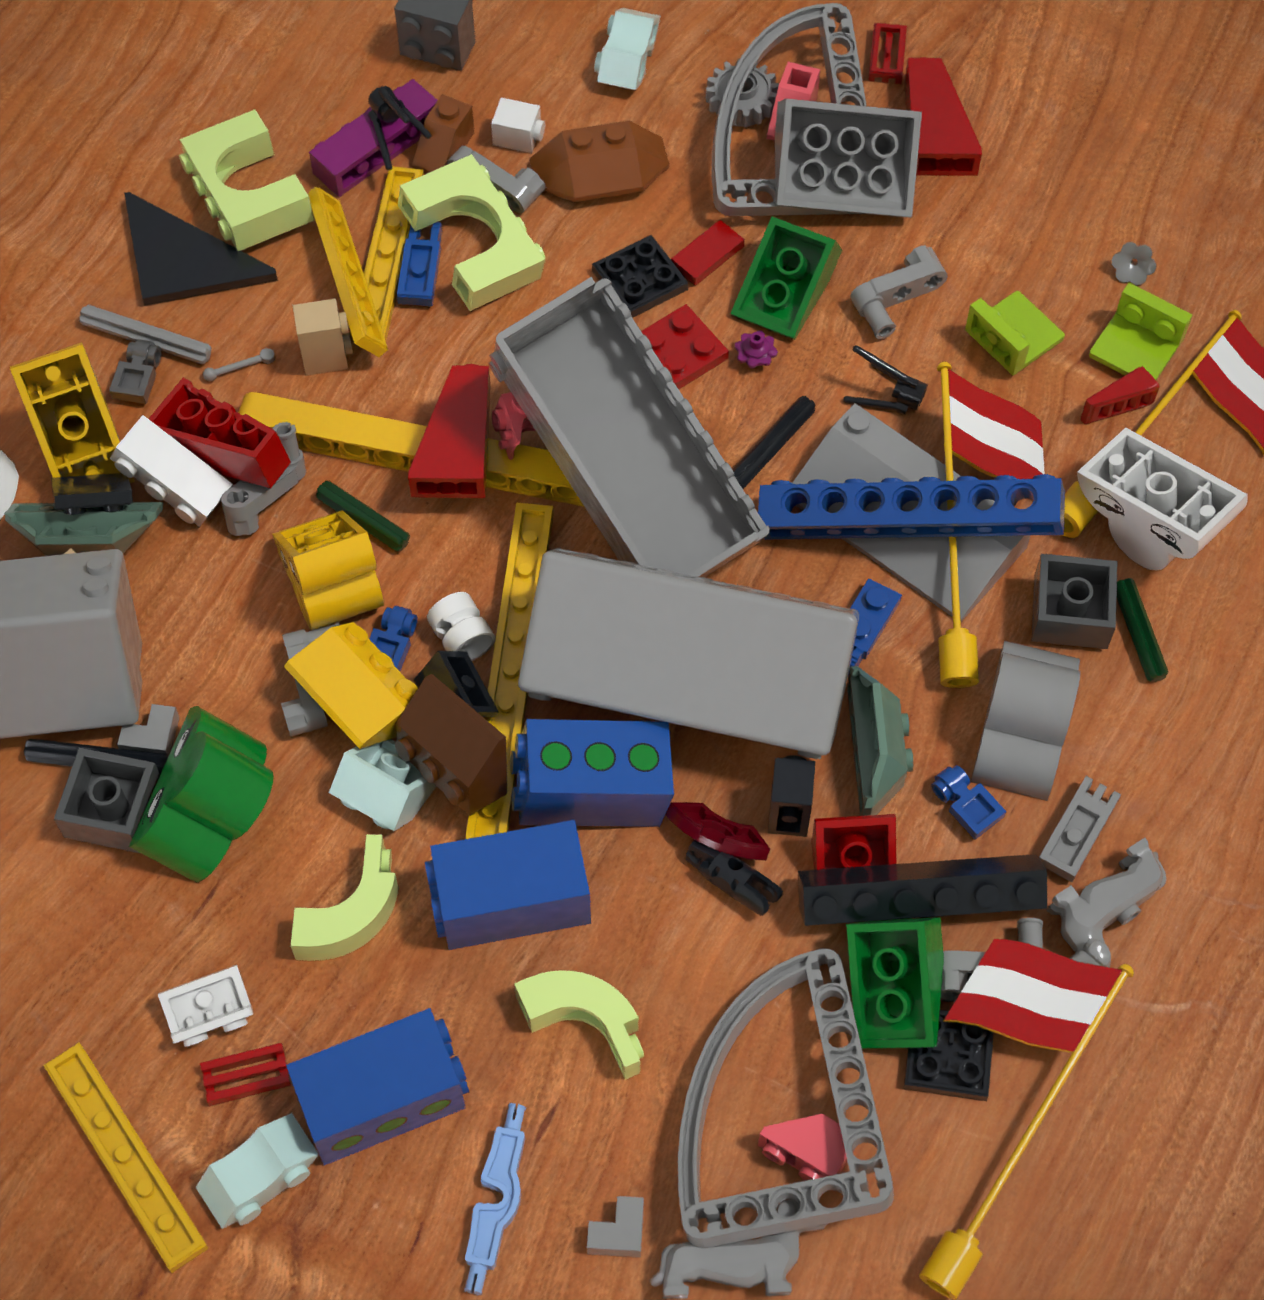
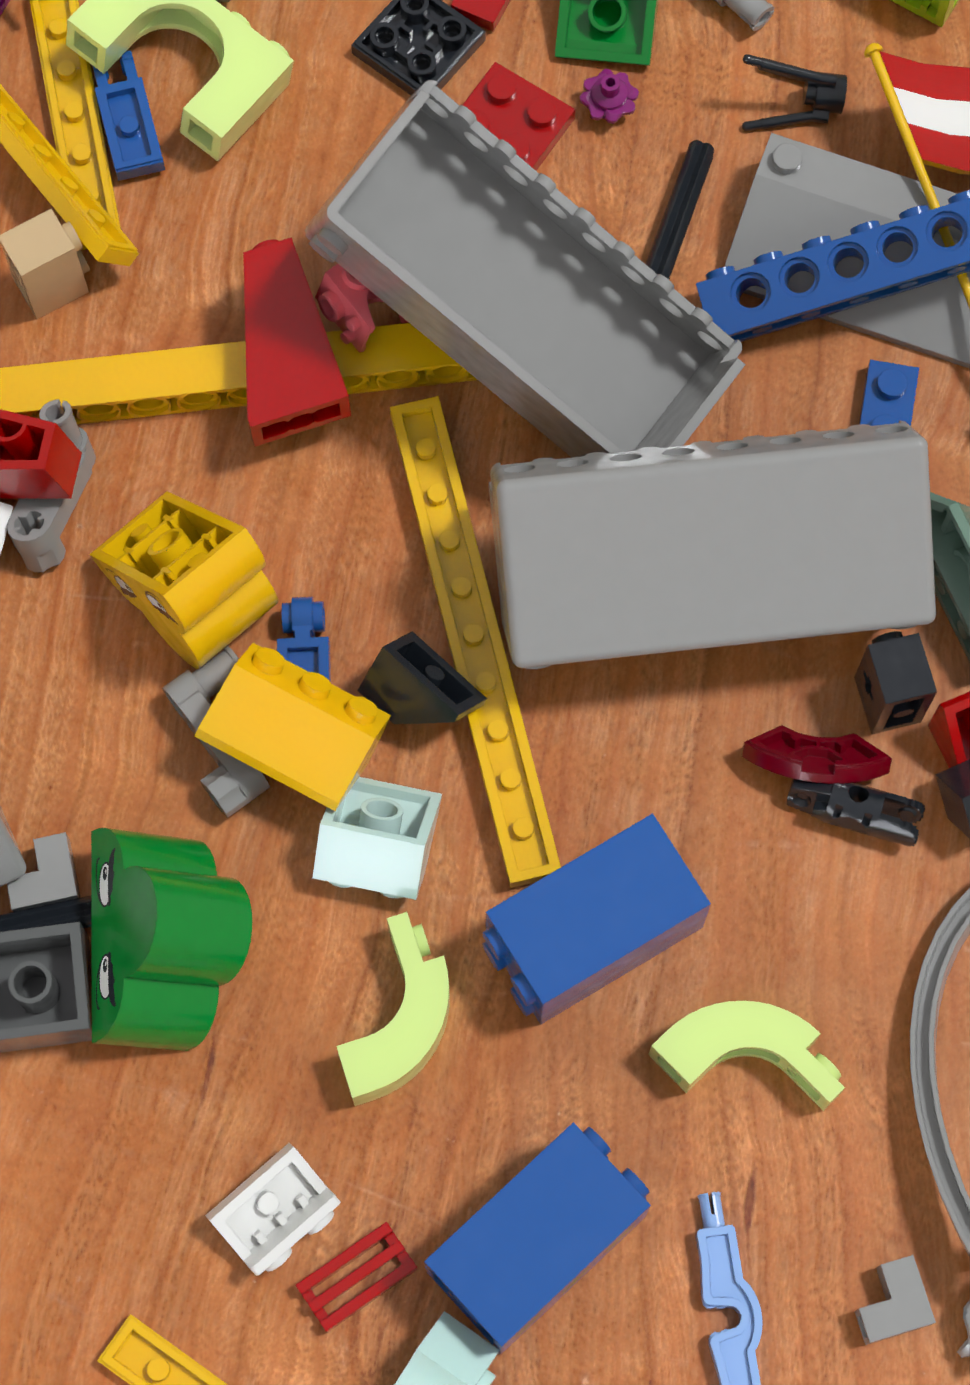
camera: 20 degrees left, 10 degrees up
(364, 515) = (196, 489): dark green axle -> none
(453, 746) = (454, 767): reddish brown slope -> none
(459, 625) = (384, 596): white wheel -> none
(592, 772) = (641, 739): blue brick -> none

